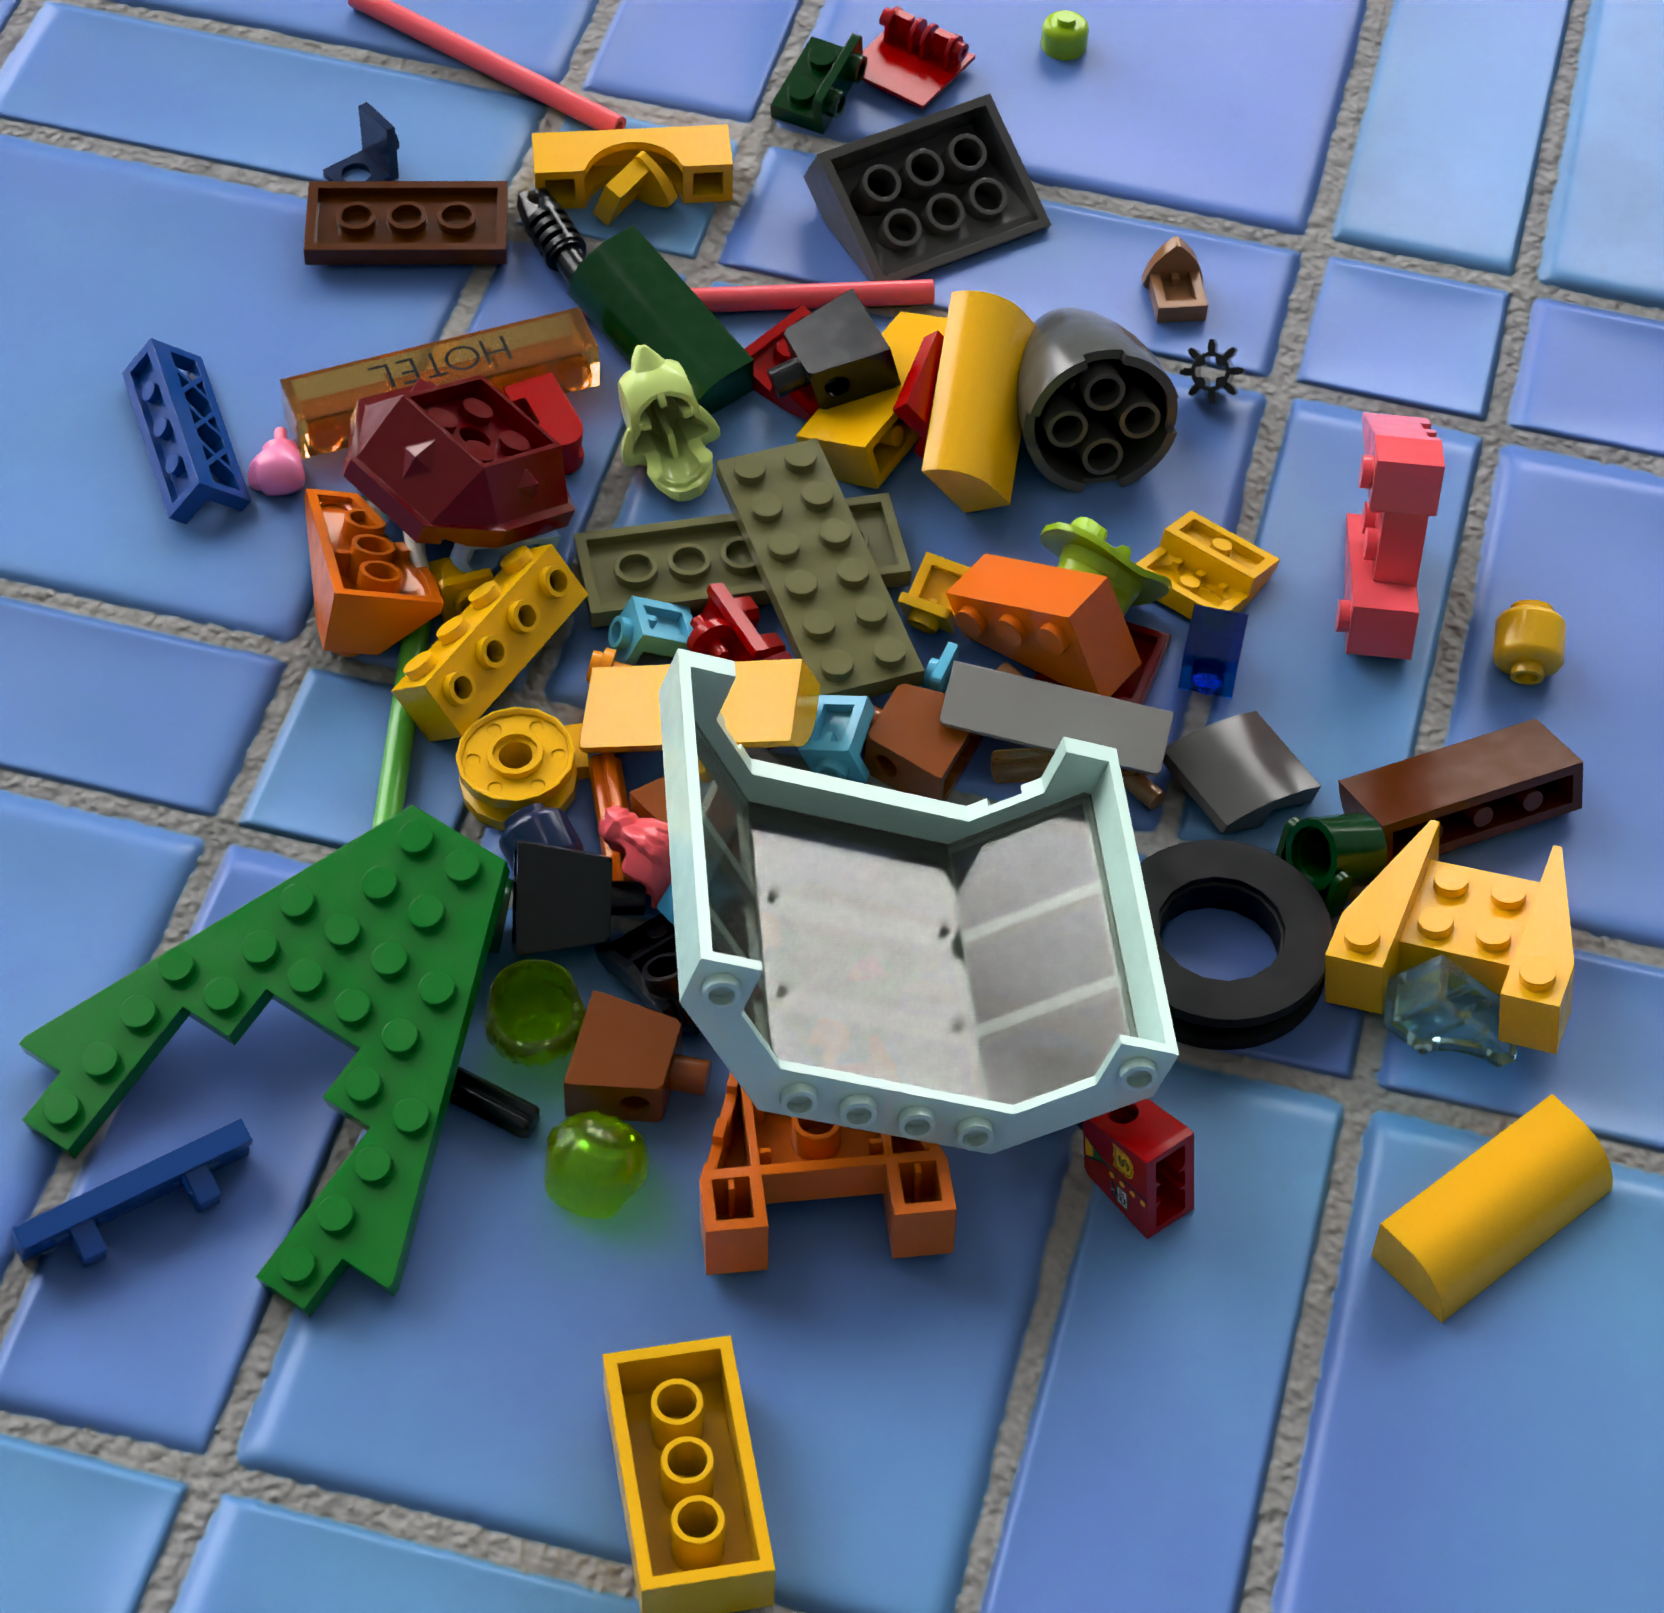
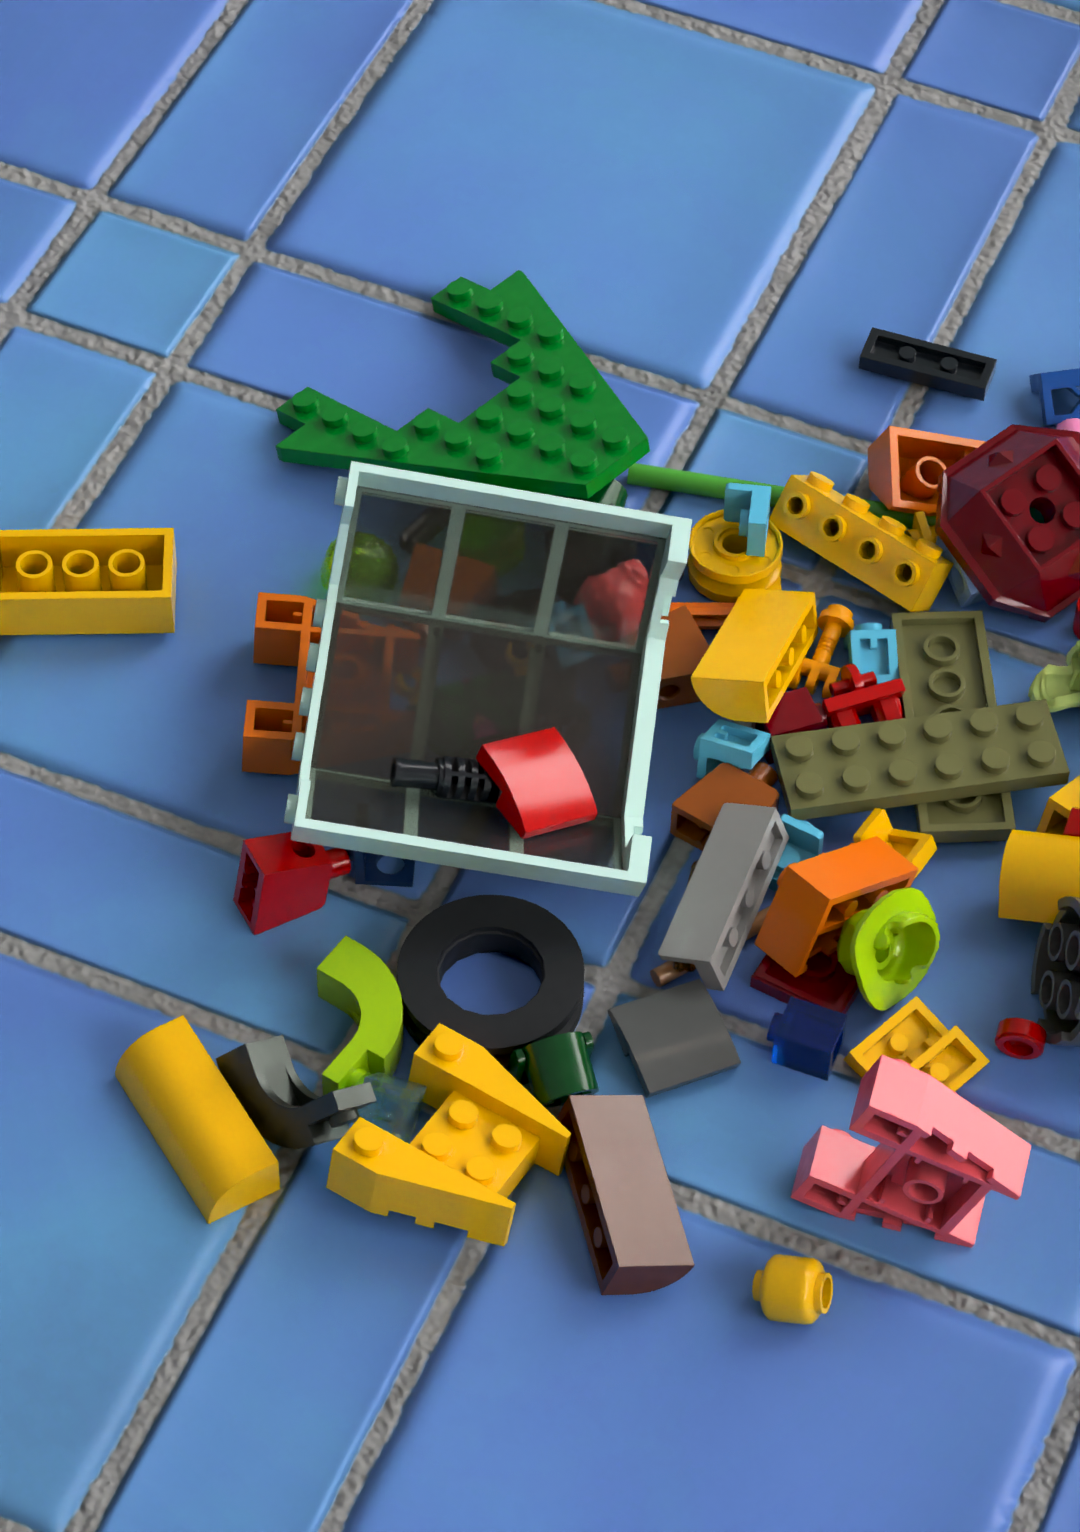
camera: 100 degrees right, 0 degrees up
(161, 609) = (927, 364): none -> black plate
(184, 1167) = (396, 355): blue hinge -> none
(495, 714) = (750, 508): none -> medium azure bracket
(966, 886) = (538, 782): none -> slope
(984, 963) = (446, 778): none -> black hinge
(1161, 482) = (1020, 1038): none -> red tile
(1310, 1042) = (366, 991): none -> lime arch
(1473, 1095) = (280, 1102): none -> pearl dark grey arch

